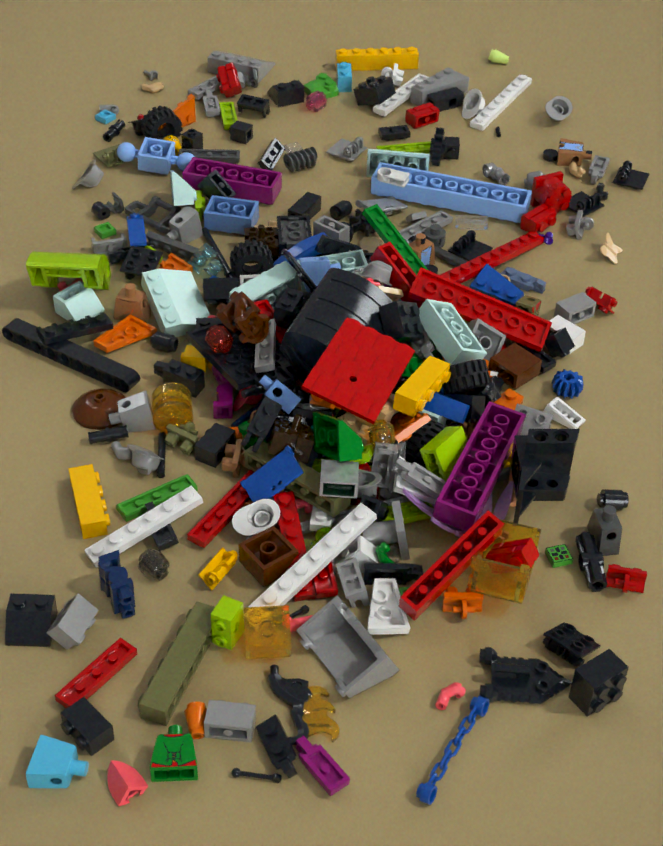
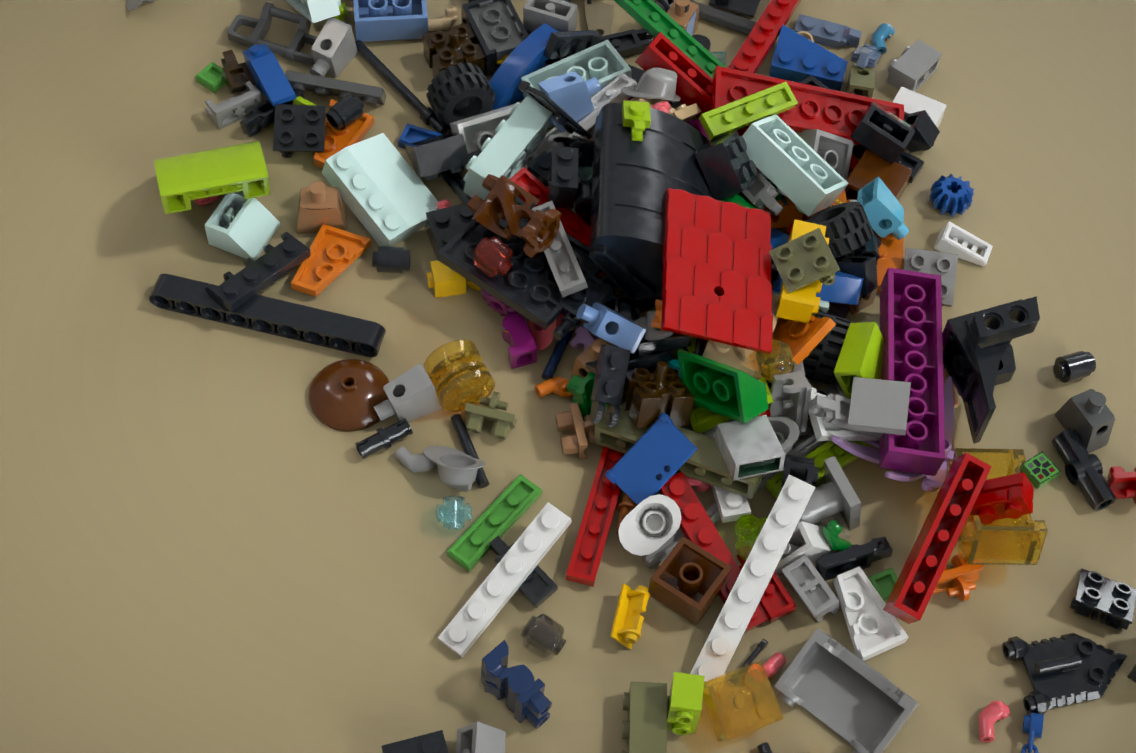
camera: 20 degrees left, 15 degrees up
(88, 501) = (408, 558): yellow brick -> none
(103, 211) = (195, 42): leg -> none
(117, 228) = (235, 74): none -> dark brown plate
(131, 483) = (454, 512): none -> clear light blue gear
(174, 258) = (345, 112): none -> black brick
(181, 373) = (442, 315): black hinge -> none
(204, 260) = (391, 103): clear light blue hinge -> none
(212, 445) = (537, 417): black brick -> none
(344, 276) = (637, 116): none -> lime plate
(421, 373) = (805, 261): none -> olive hinge
(441, 473) = (879, 406): none -> light grey tile
(450, 293) = (748, 110): none -> lime plate
(506, 376) = (882, 209): none -> medium azure torso
(526, 331) = (883, 132): none -> black slope
(542, 294) = (866, 56): none -> sand blue hinge
(557, 291) = (879, 36): none -> dark azure arm
(605, 304) = (948, 48): red hinge -> none

